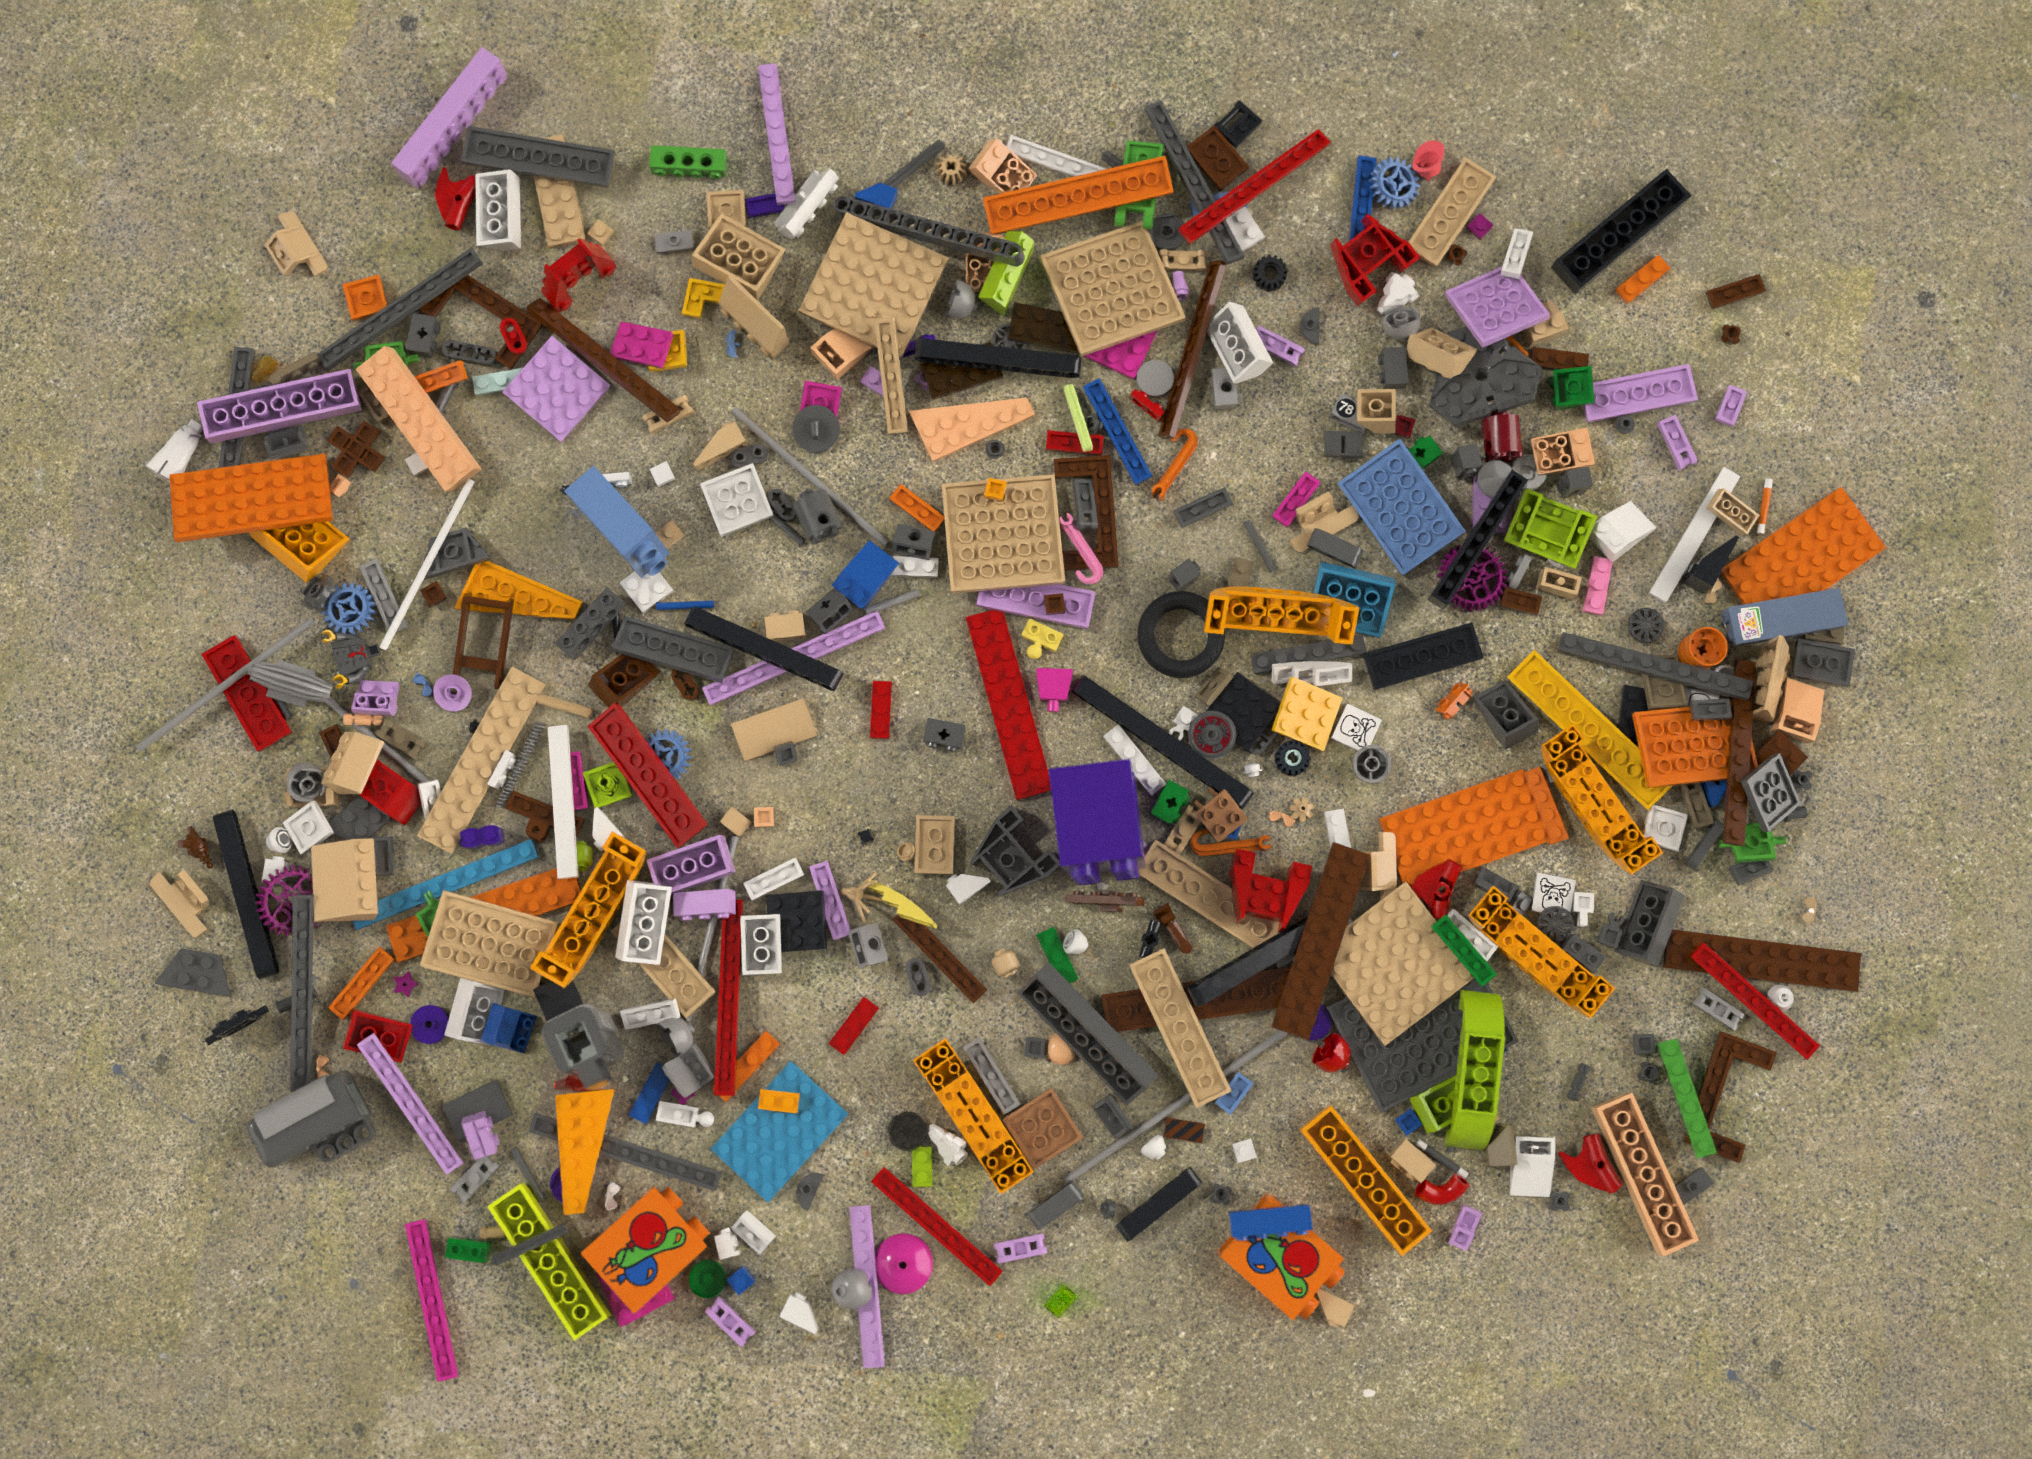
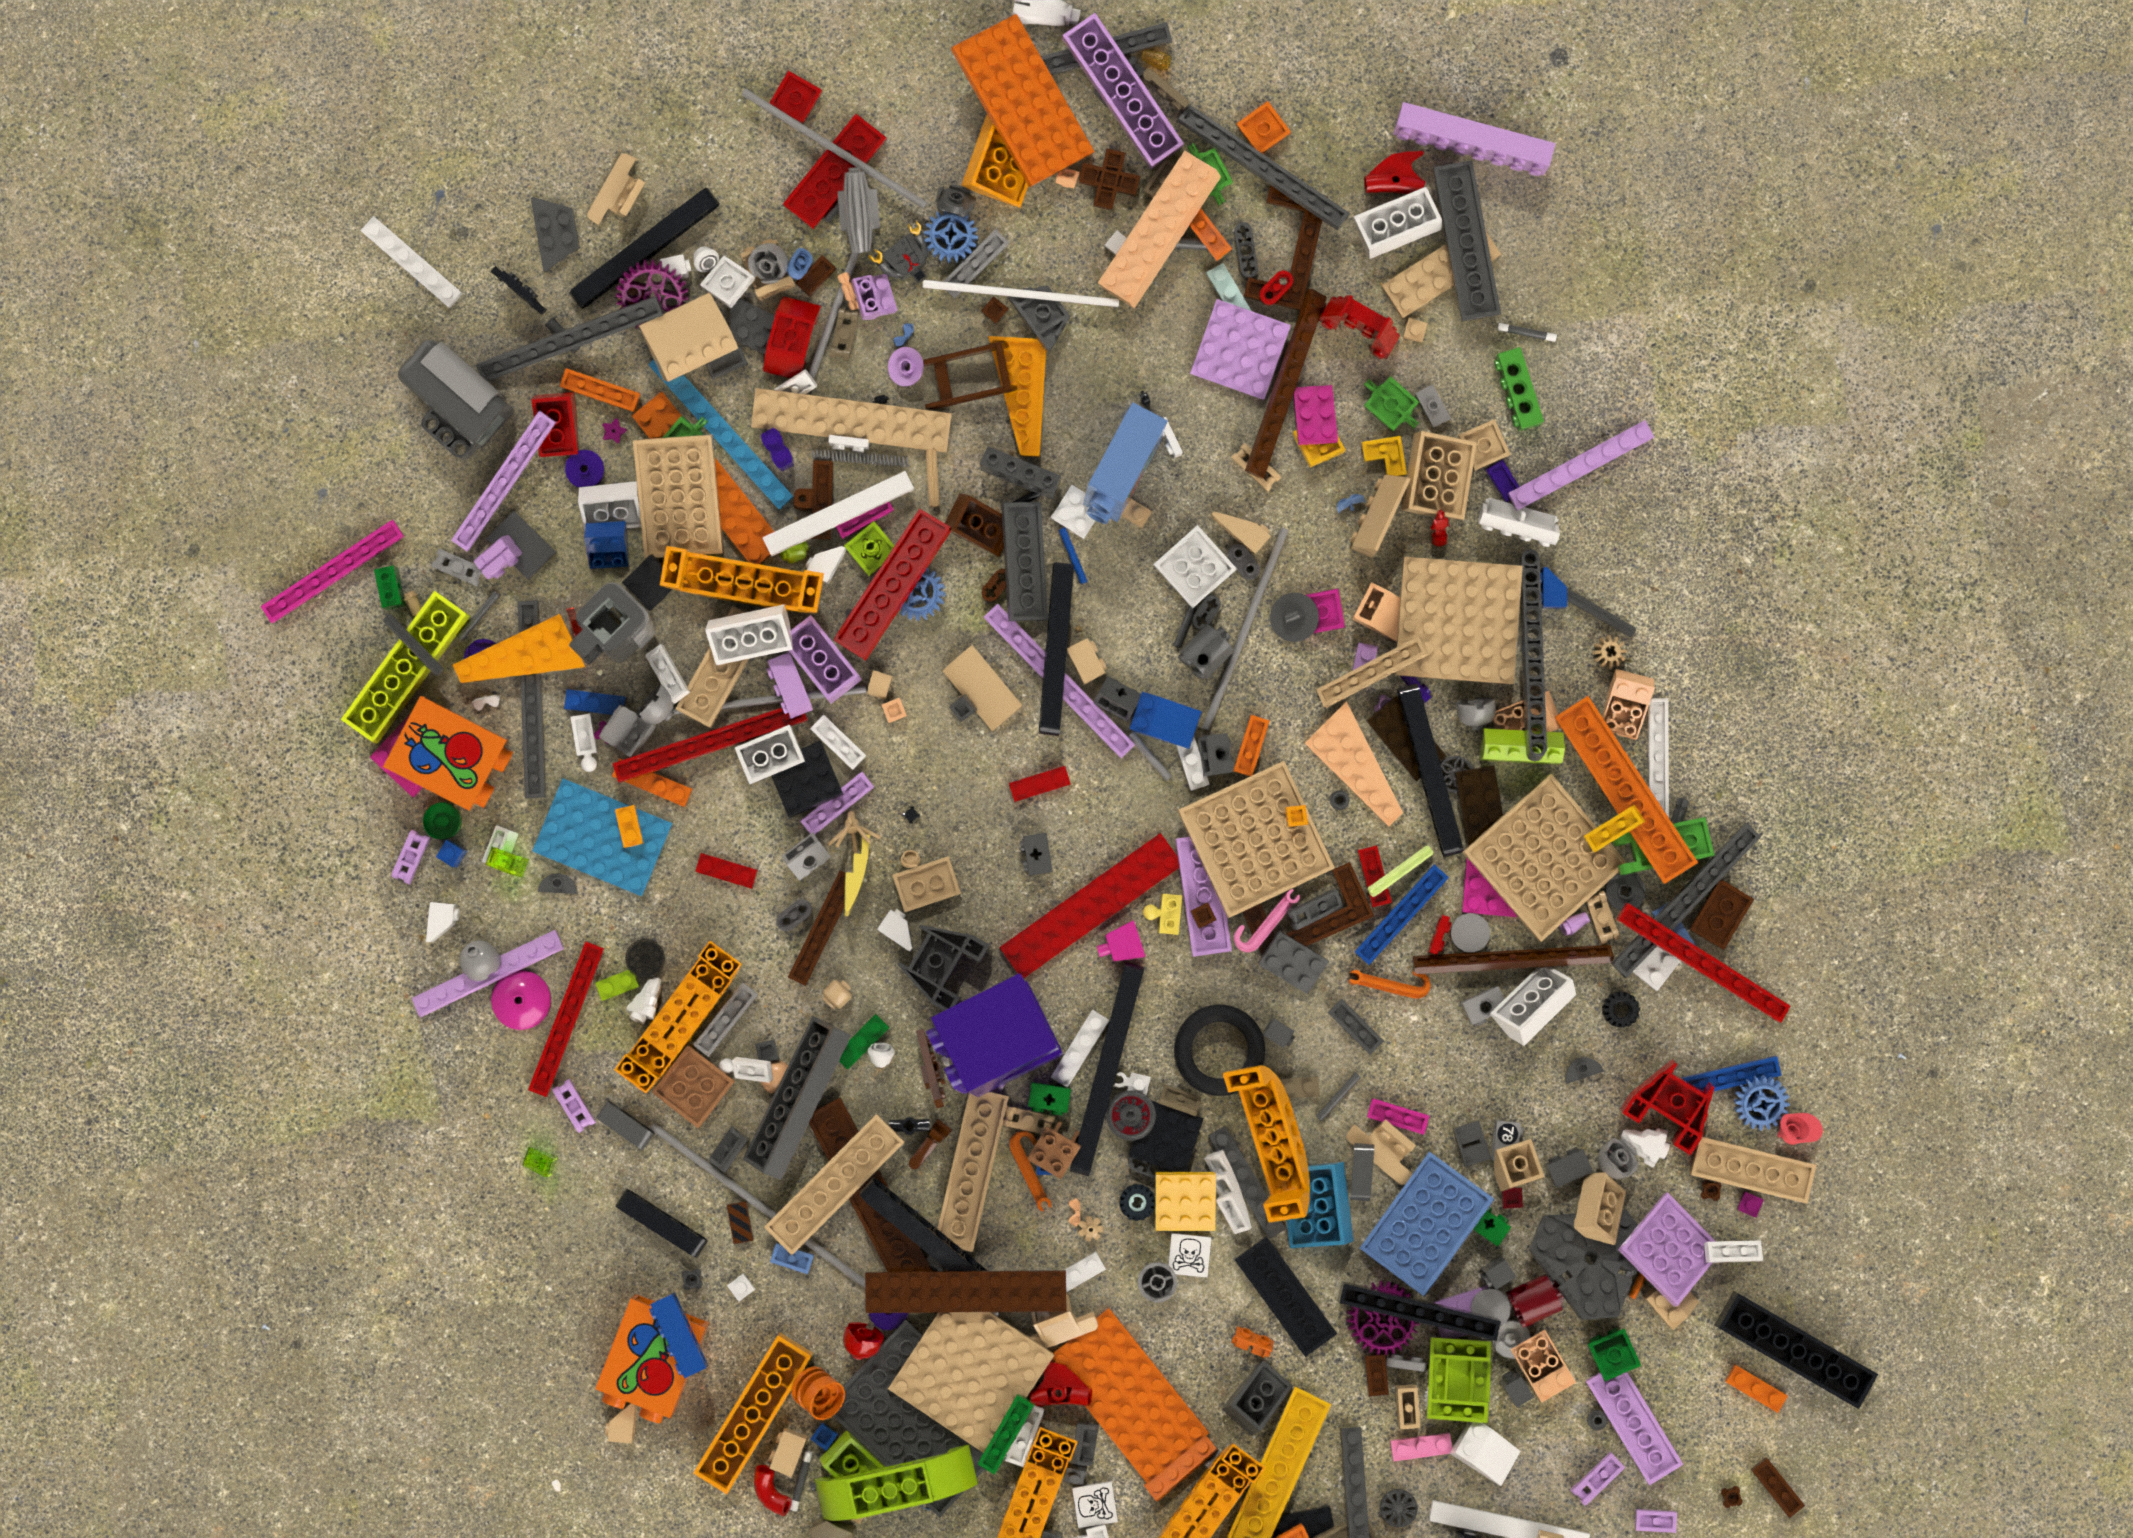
camera: 75 degrees right, 5 degrees up
(163, 703) = (796, 97): none -> red plate
(169, 1119) = (411, 262): none -> white plate
(196, 847) = (671, 183): reddish brown piece -> none
(286, 442) = (1090, 110): dark grey hinge -> none
(294, 246) = (1288, 39): tan plate -> none
(318, 755) = (799, 263): none -> medium blue plate
(321, 1062) = (514, 381): light nougat piece -> none
(352, 763) = (802, 300): tan slope -> none
(419, 327) = (1253, 192): dark grey brick -> none
(640, 138) = (1527, 332): none -> dark grey bar
(657, 276) = (1391, 404): none -> bright green plate
(662, 474) = (1194, 484): white tile -> none
(726, 1244) = (479, 827): white brick -> none
(768, 1229) = (507, 862): none -> clear neon green slope
(780, 269) = (1440, 523): none -> red piece
(1044, 1070) = (748, 1069): none -> white plate
(1089, 420) = (1394, 888): dark grey plate -> none
(1108, 216) = (1614, 828): none -> yellow plate
(1108, 1208) = (640, 1176): dark grey plate -> none
(1125, 540) = (1293, 962): none -> dark grey plate
(1154, 1148) = (712, 1200): white cone -> none
(1242, 127) = (1763, 928): black plate -> none
(1252, 769) = (1112, 1167): white plate -> none
(1265, 895) = (991, 1222): red wedge -> none
(1279, 346) = (1548, 1044): lavender plate -> none
(1367, 1111) = (818, 1393): none -> orange wheel
(1464, 1227) = (743, 1525): lavender slope -> none
(1556, 923) = (1067, 1515): dark grey wheel -> none
(1558, 359) = (1639, 1330): reddish brown plate -> none

